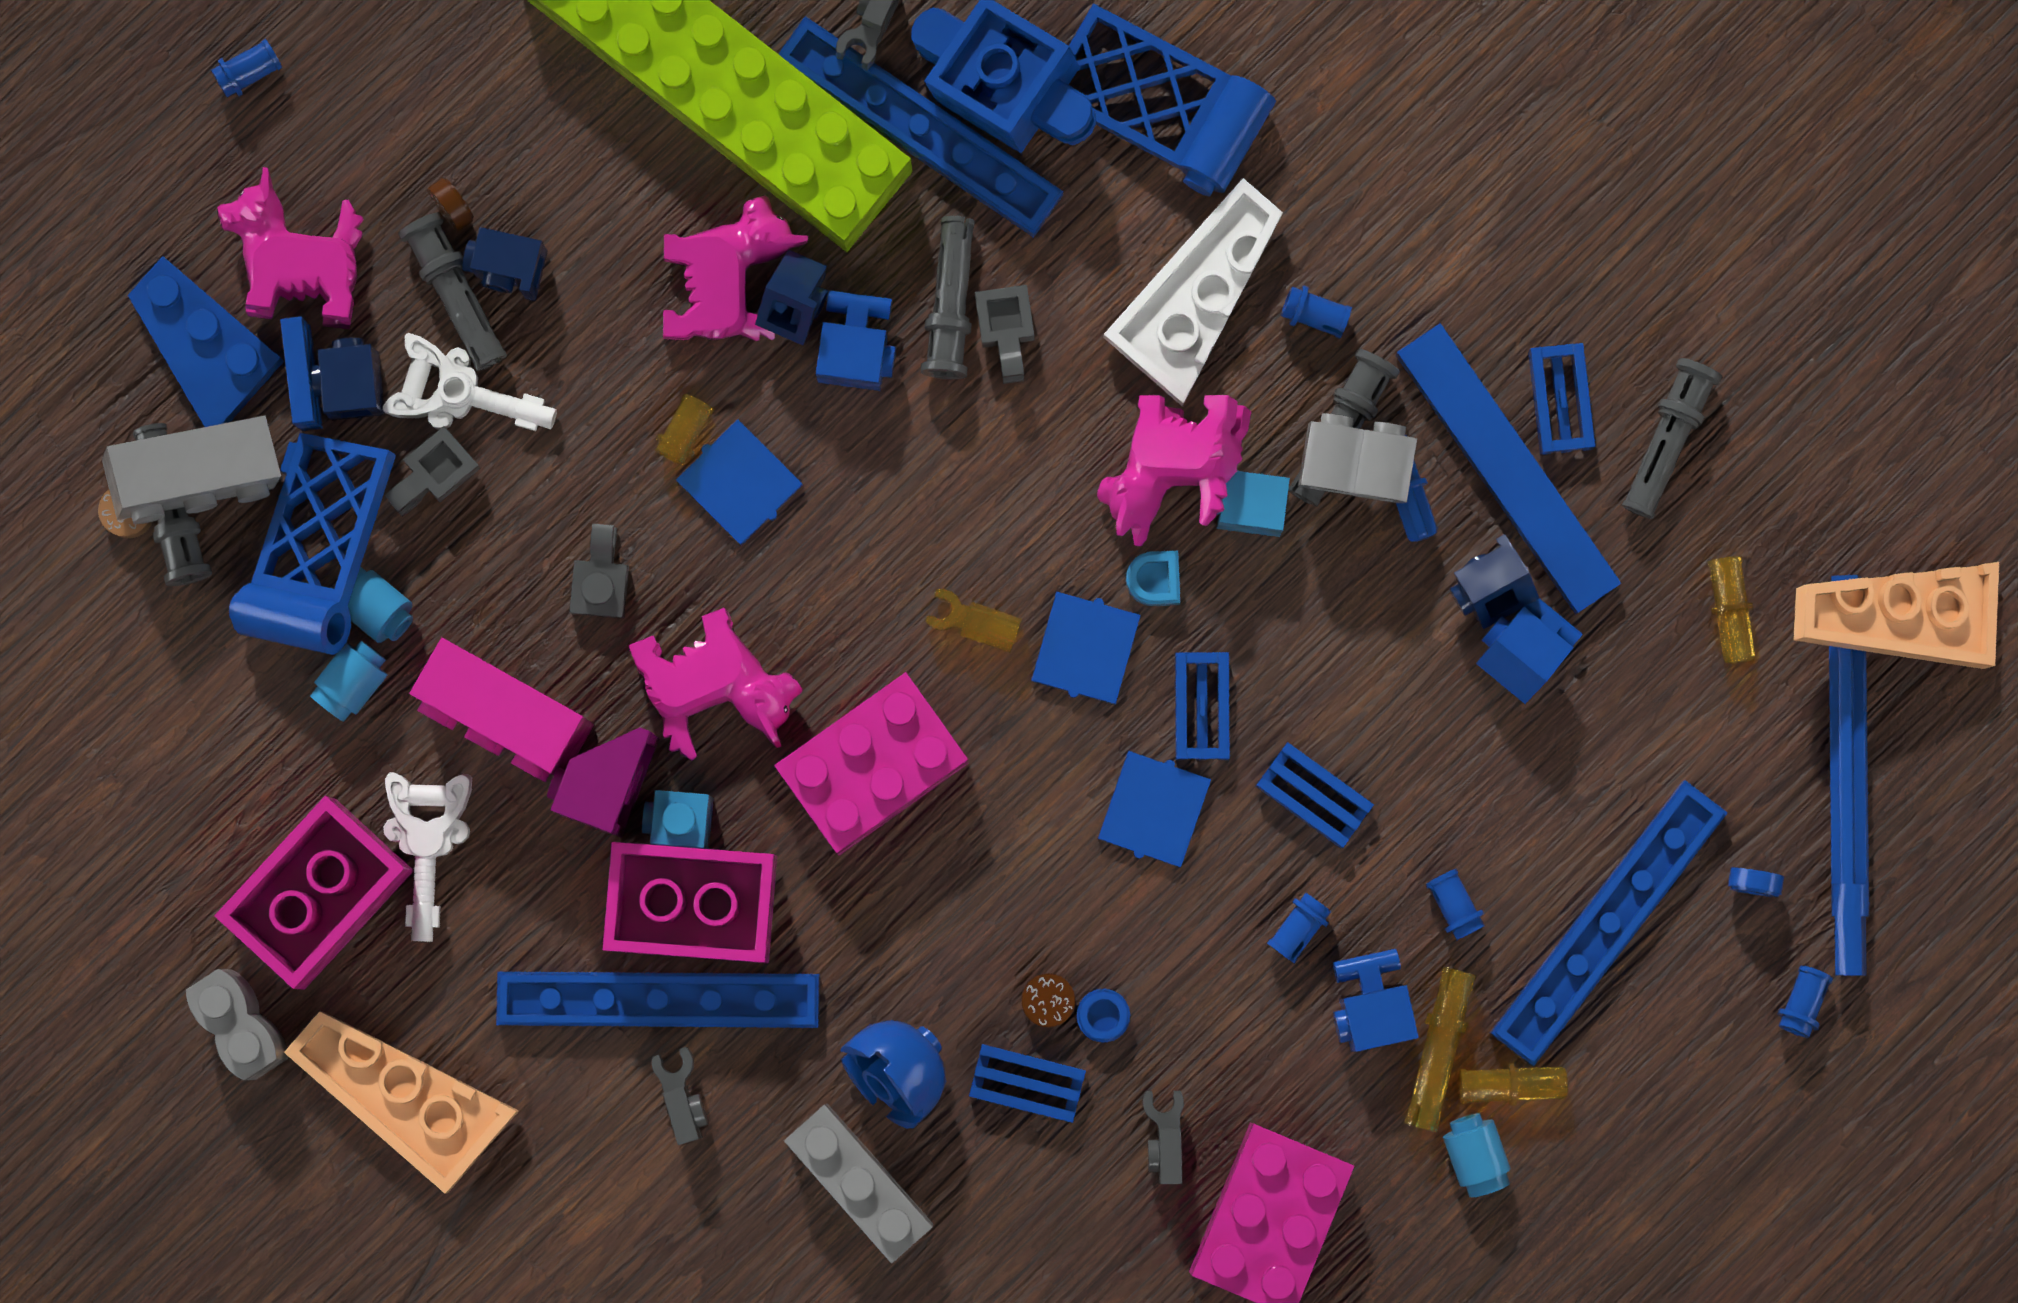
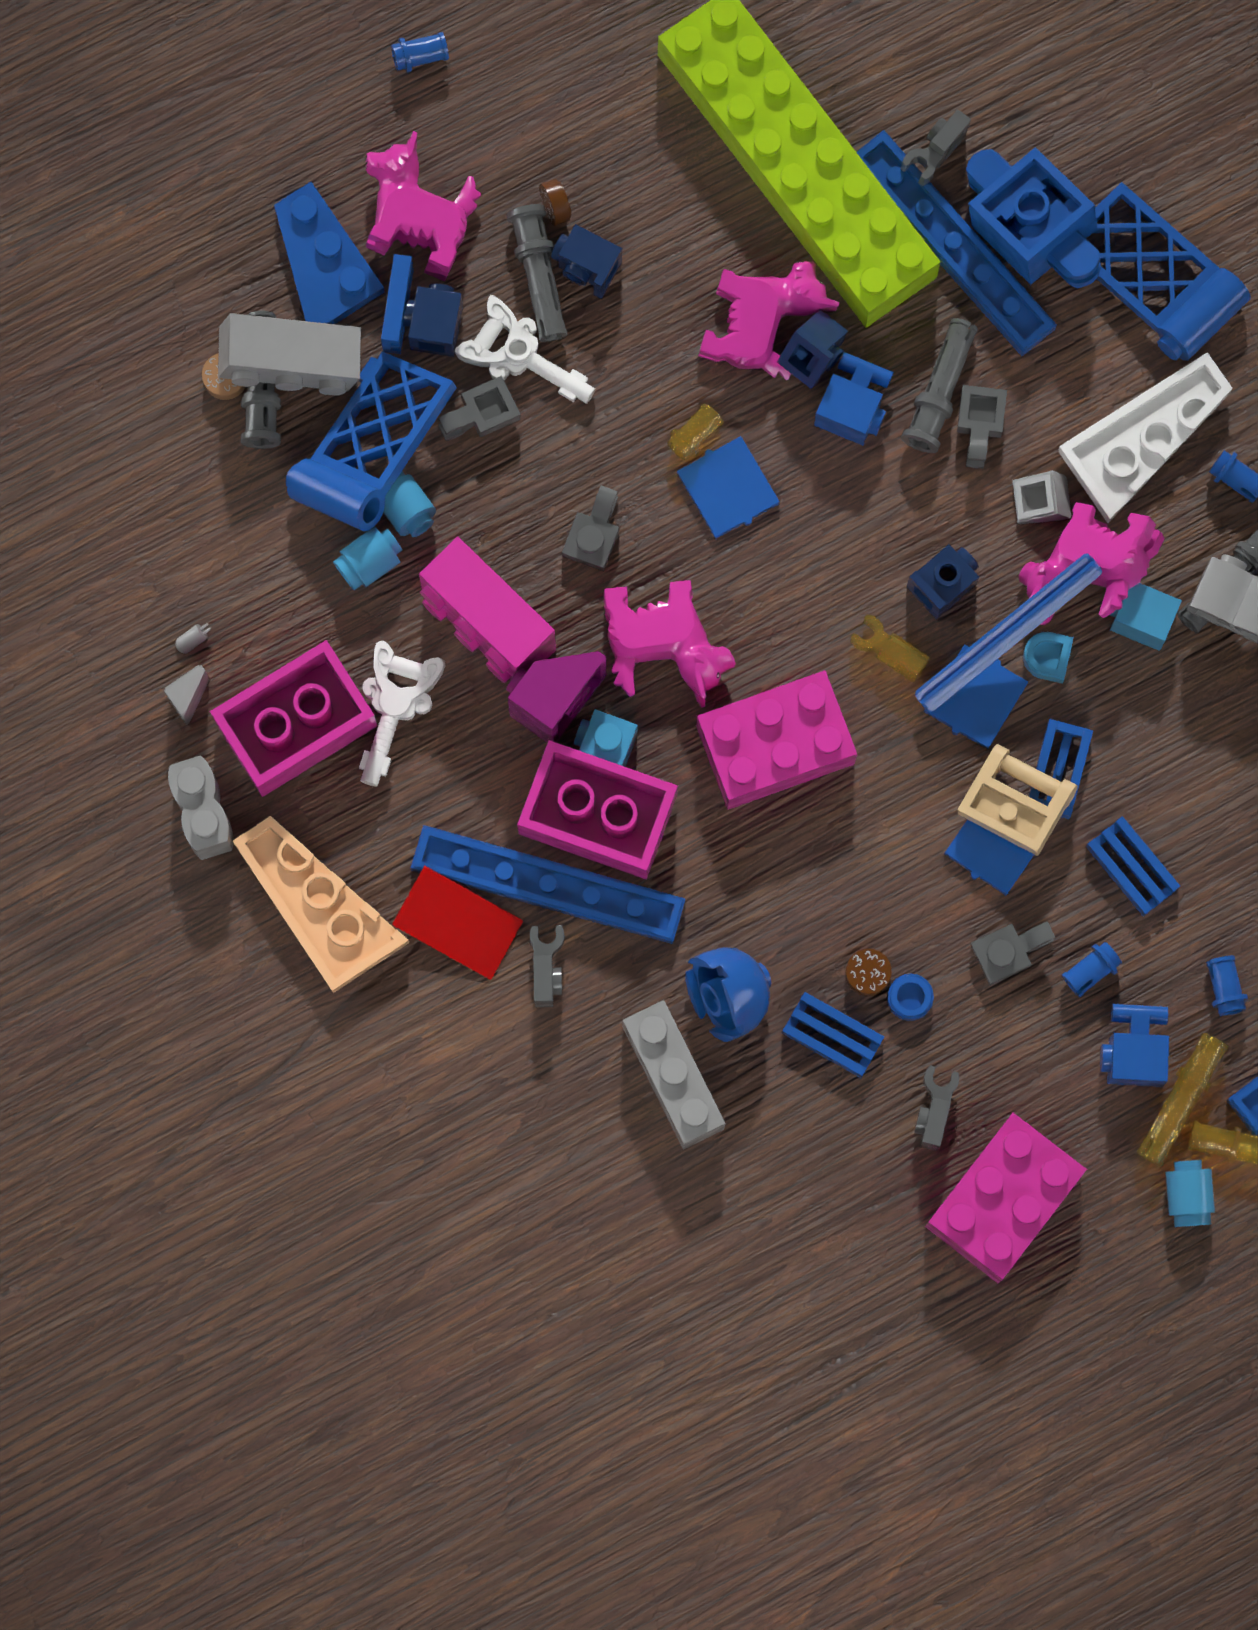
camera: 15 degrees right, 5 degrees down
(174, 826) = (192, 638): none -> light grey piece
(185, 894) = (187, 692): none -> light grey slope
(567, 1073) = (457, 922): none -> red sticker
(1008, 543) = (936, 593): none -> dark blue brick
(1100, 397) = (1042, 498): none -> light grey slope
(1103, 569) = (1008, 632): none -> blue axle
(1160, 775) = (1008, 810): none -> tan plate
(1197, 935) = (1006, 953): none -> dark grey plate

